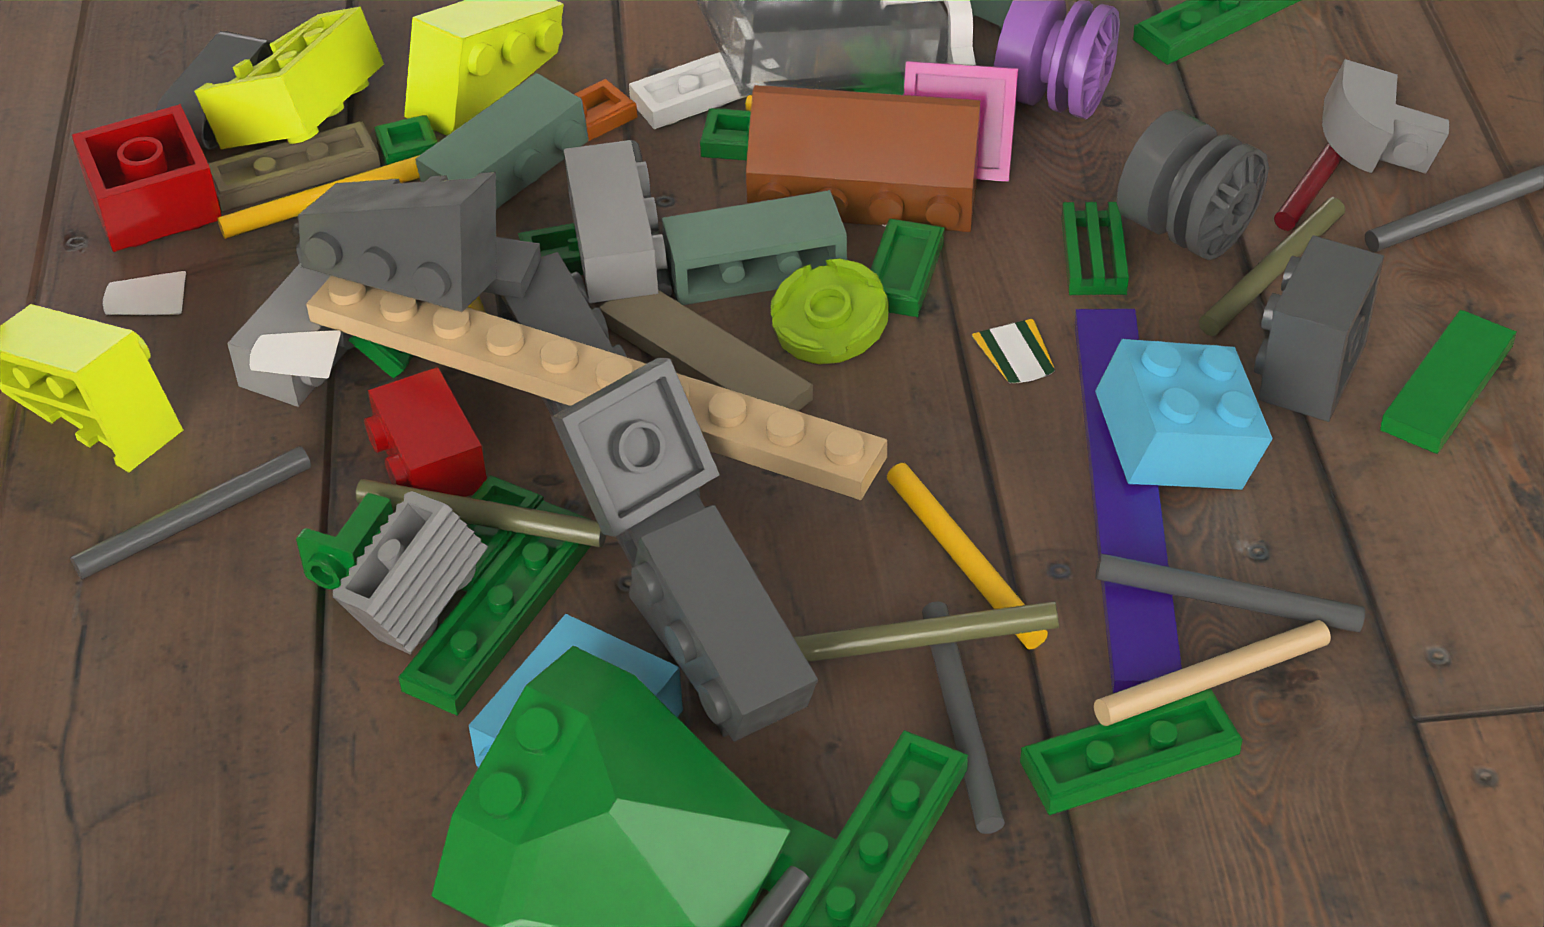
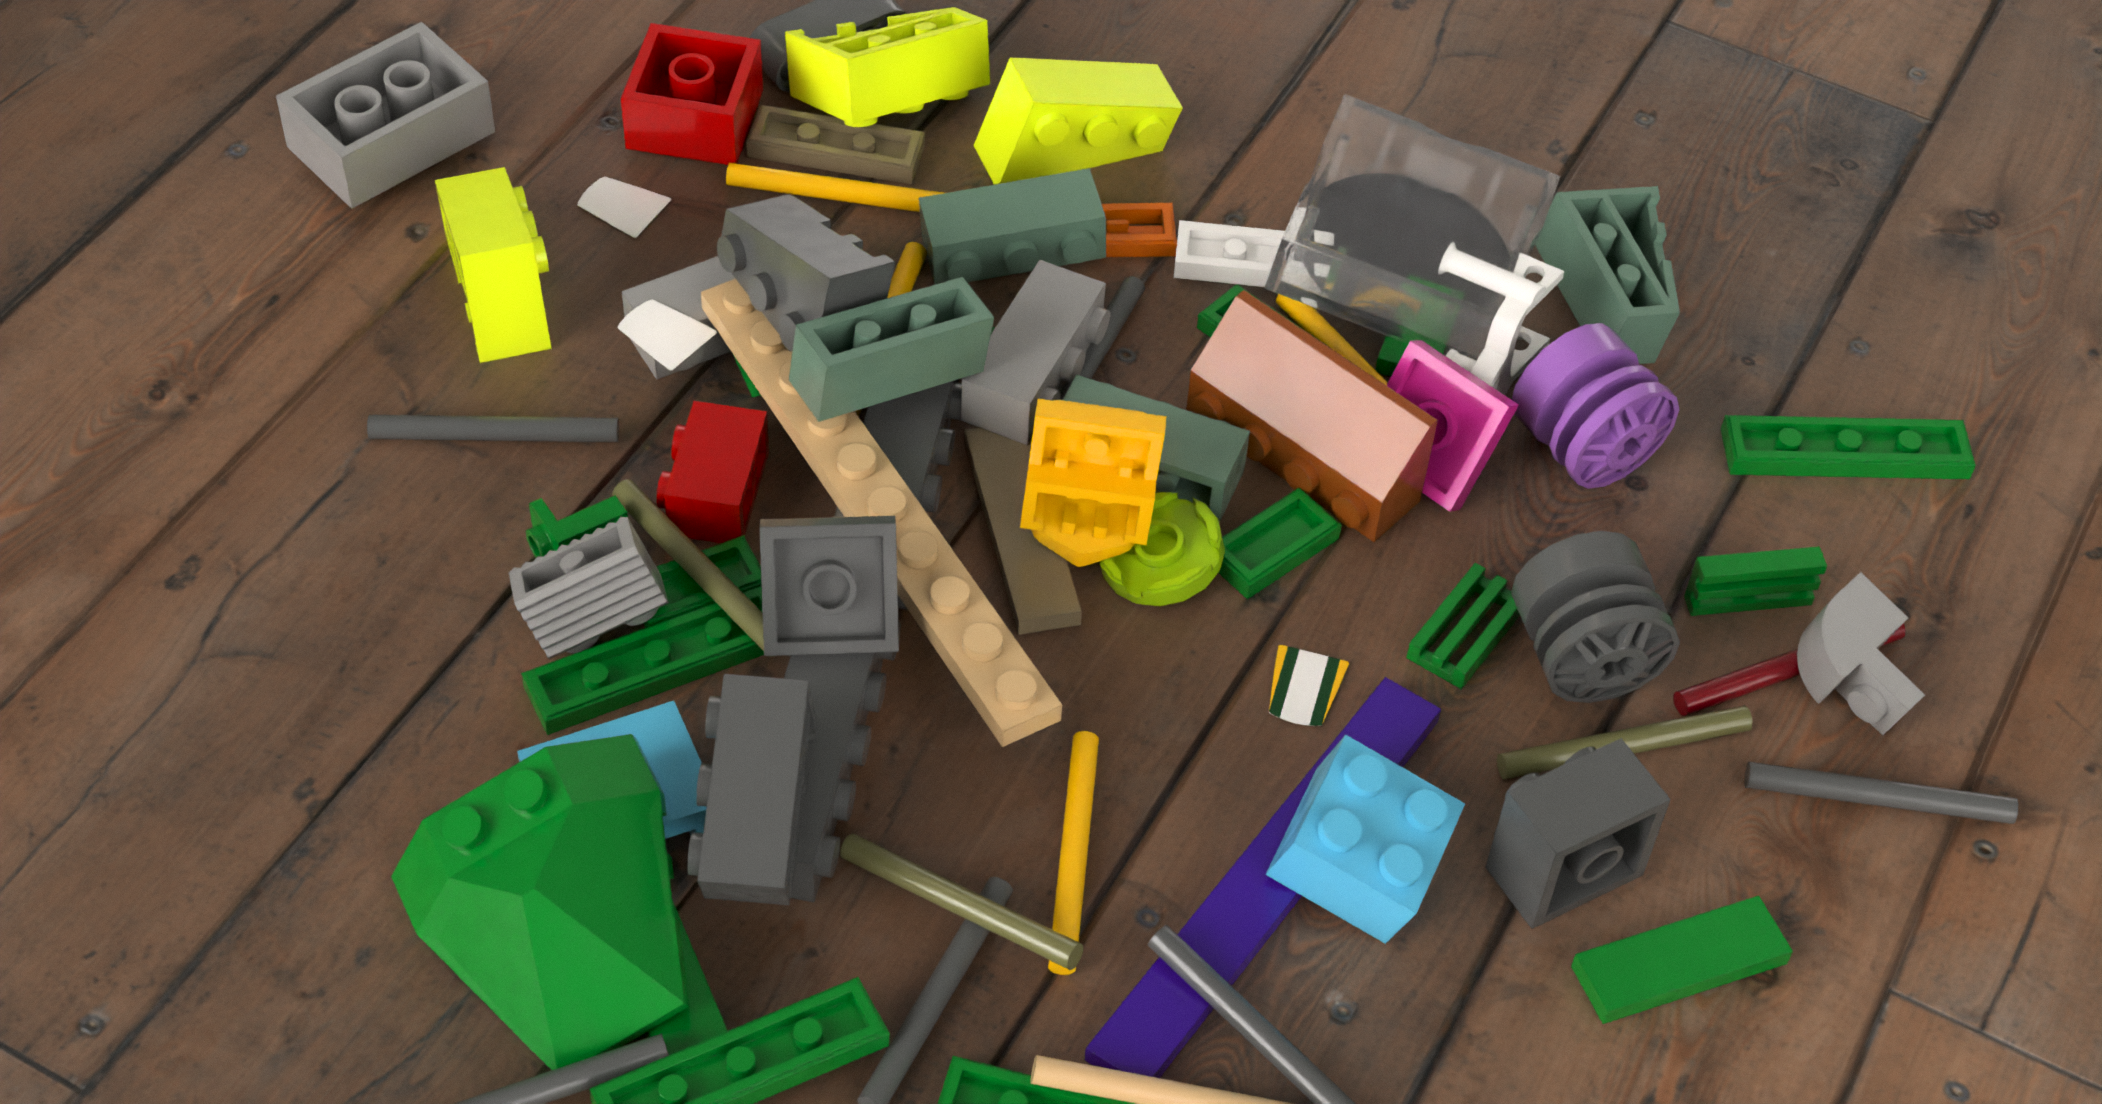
camera: 30 degrees right, 5 degrees up
(404, 138) = (948, 170): green tile -> none
(525, 252) = (890, 348): none -> sand green brick
(754, 272) = (1091, 479): none -> yellow piece
(1265, 109) = (1754, 581): none -> green tile

